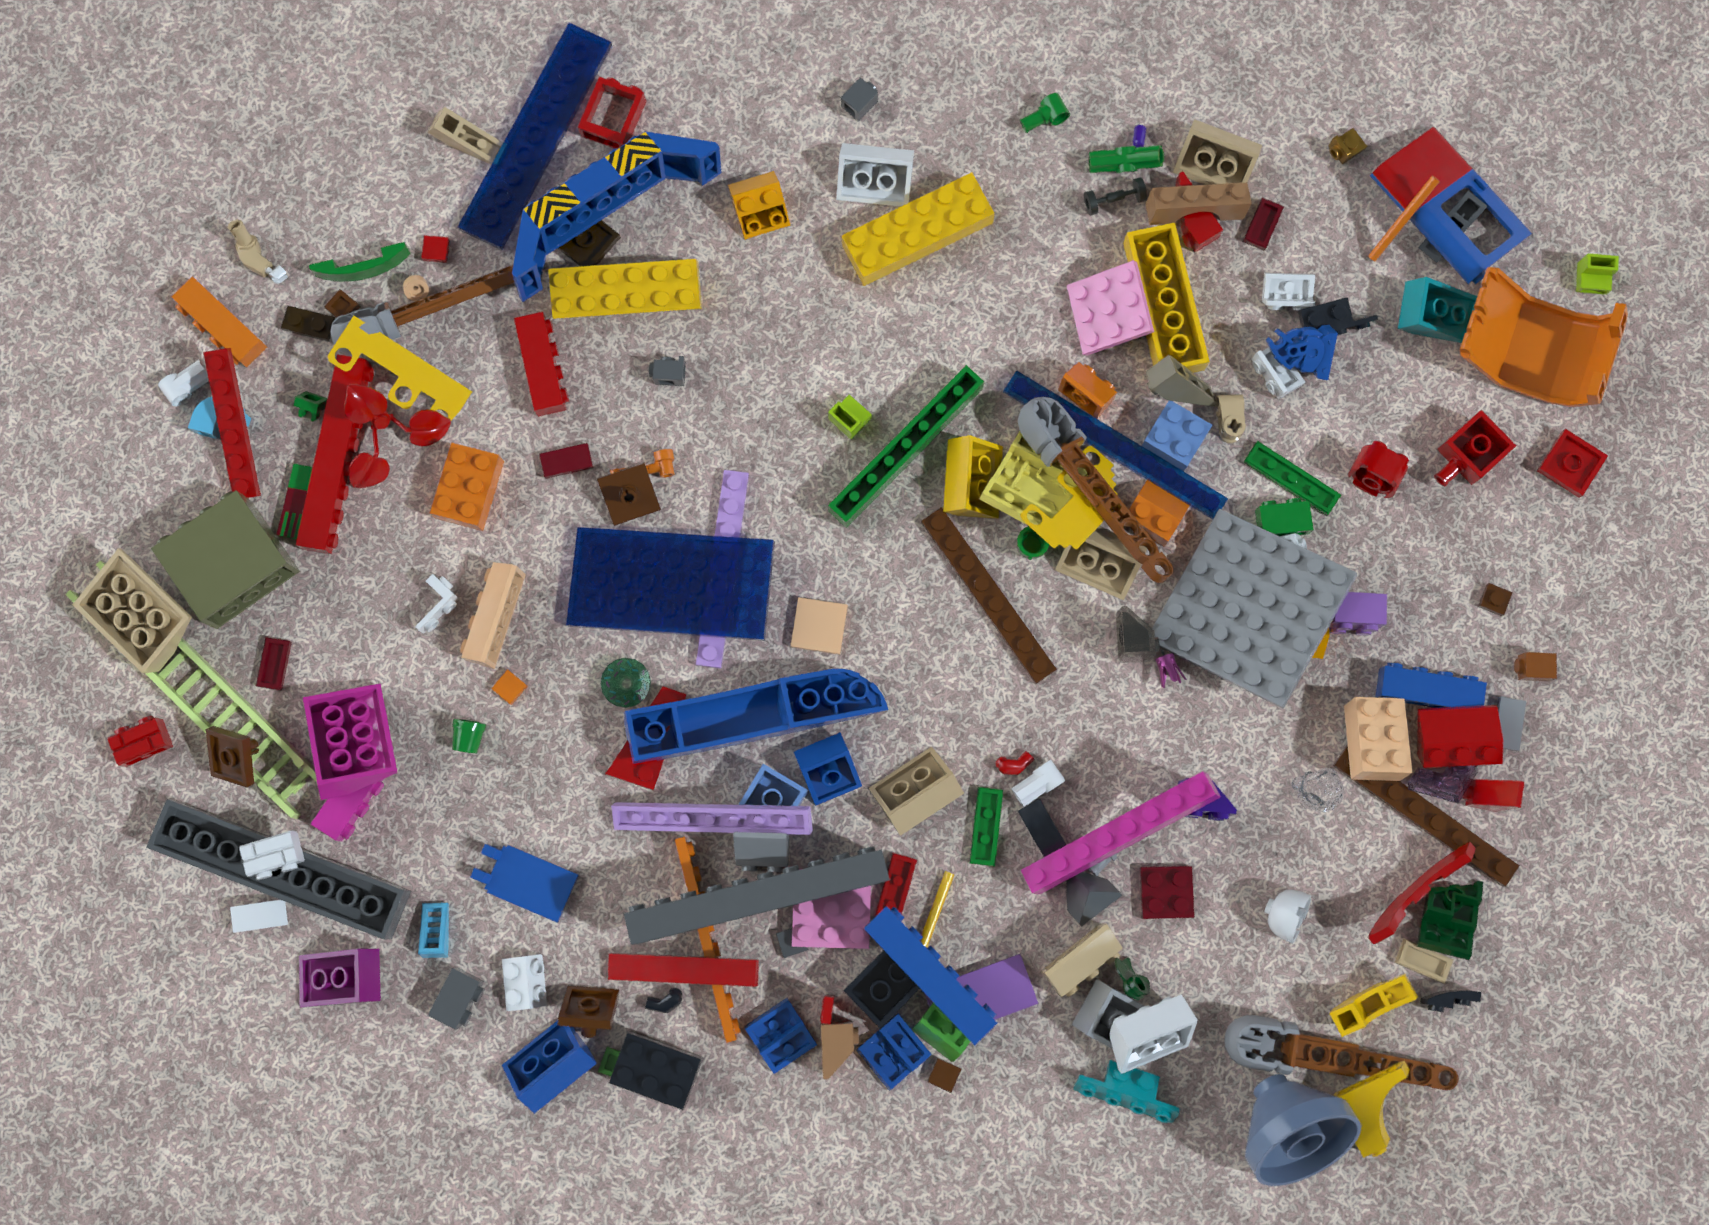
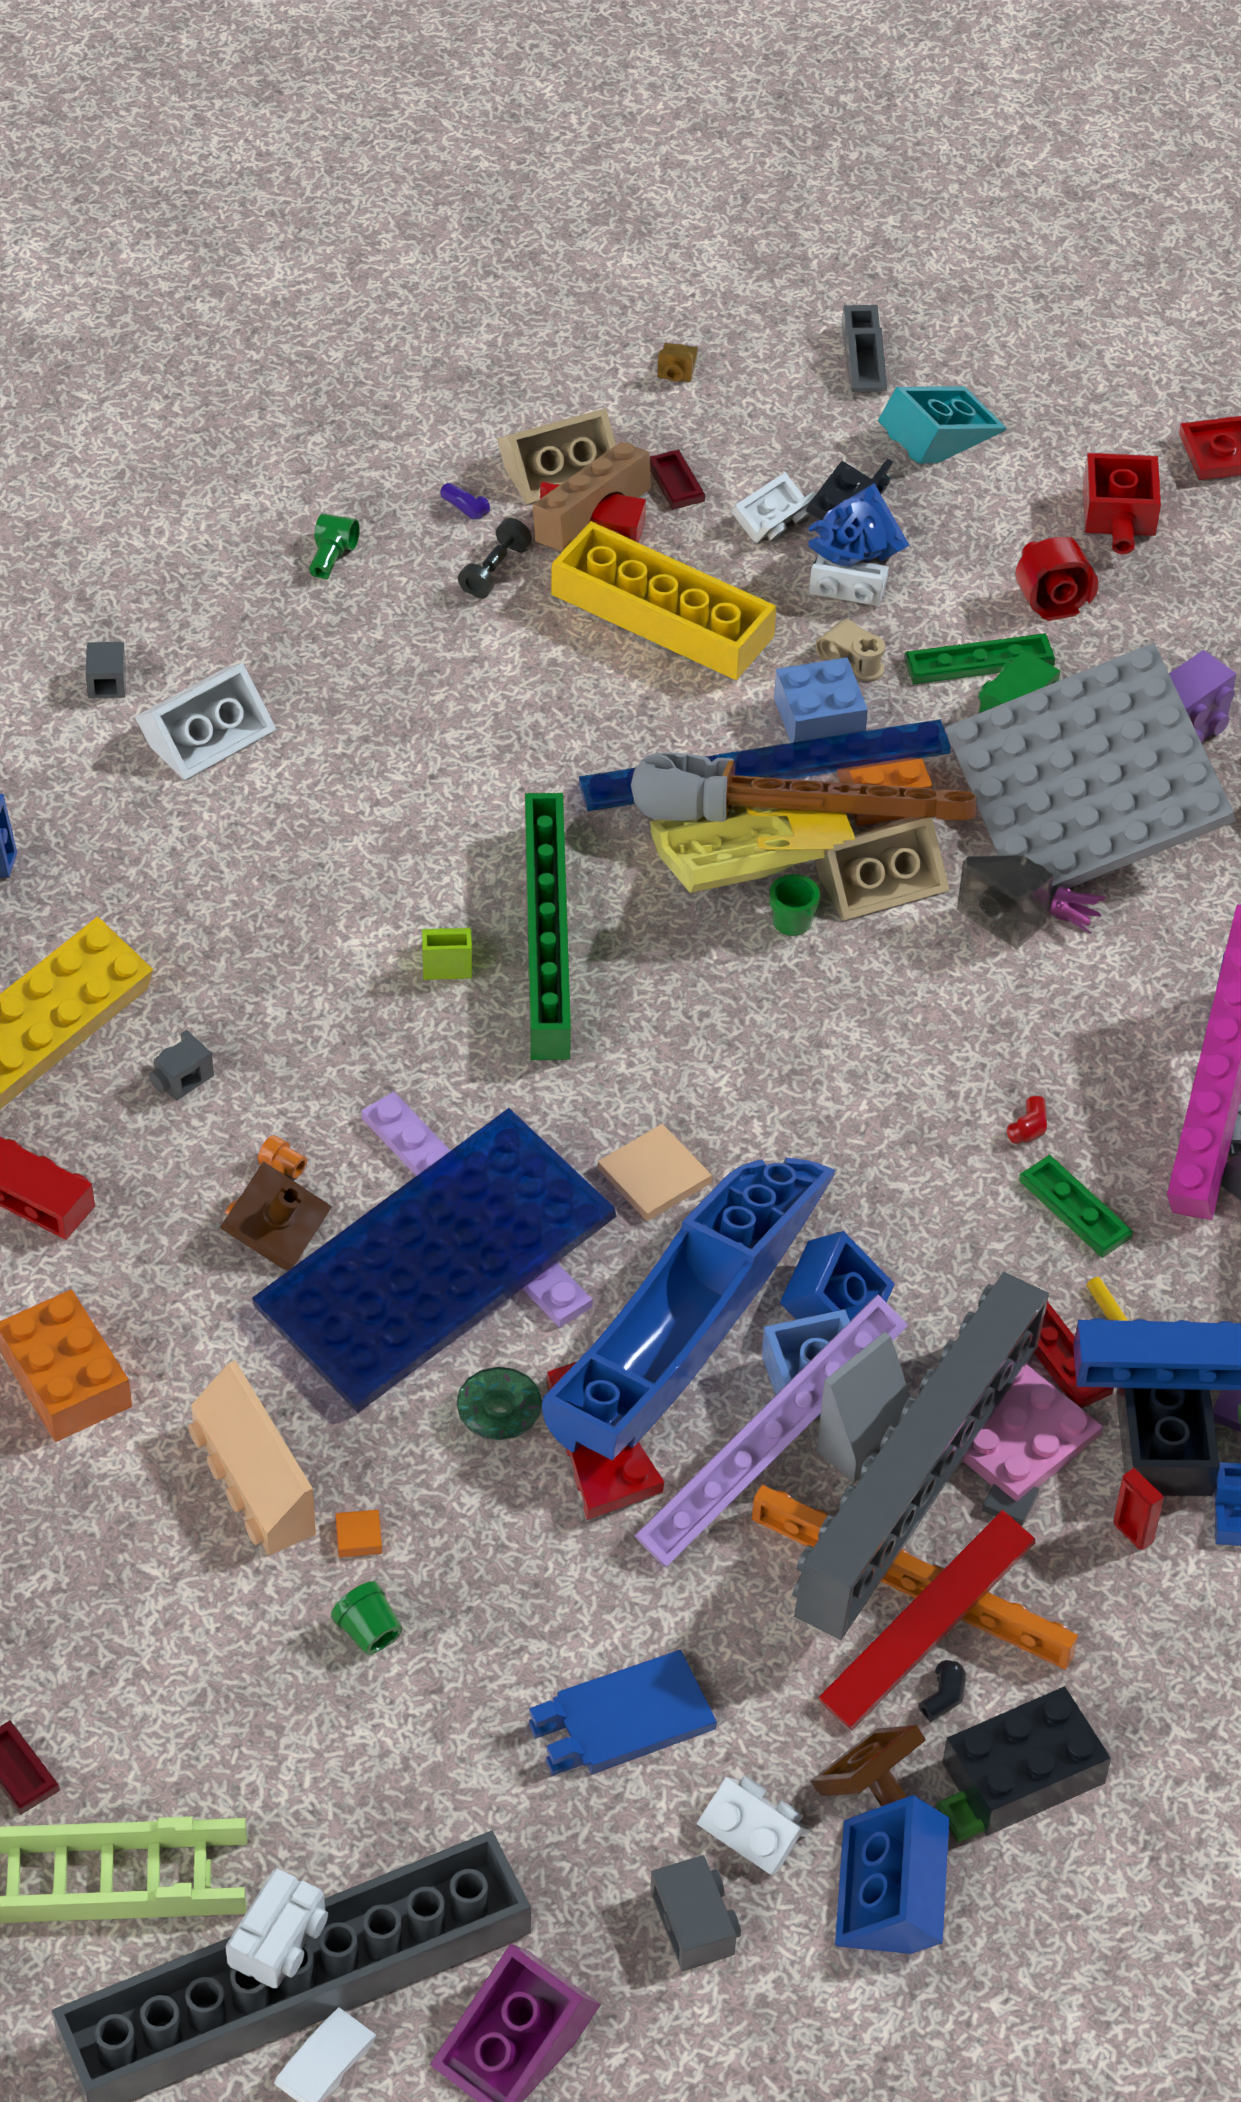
camera: 50 degrees left, 30 degrees down
(231, 756) = (86, 1883): reddish brown tile -> none
(340, 813) = (297, 1818): dark pink brick -> none
(349, 739) = (224, 1737): dark pink slope -> none
(443, 940) = (595, 1892): medium azure slope -> none
(446, 605) = (162, 1496): white bracket -> none
(566, 460) = (156, 1252): dark red tile -> none
(759, 205) = (102, 839): light orange slope -> none
(780, 1035) = (1117, 1603): blue slope -> none
(837, 1045) = (1192, 1536): medium nougat slope -> none
(916, 790) = (960, 1228): tan slope -> none
(917, 229) = (314, 733): yellow brick -> none
(968, 470) = (650, 902): yellow slope -> none
(988, 595) = (804, 996): reddish brown plate -> none
(1041, 781) = (1078, 1112): white piece -> none
(1042, 827) = (1137, 1149): black slope -> none
(1087, 389) = (680, 730): orange slope -> none
(1110, 308) = (613, 644): bright pink plate -> none
(1126, 159) = (467, 518): green piece -> none
(1178, 383) = (764, 644): dark tan slope -> none
(1403, 218) = (813, 363): orange bar -> none
(1434, 156) = (800, 332): piece -> none
(1540, 345) = (1087, 378): orange windscreen -> none
(1596, 273) = (1042, 290): lime piece -> none

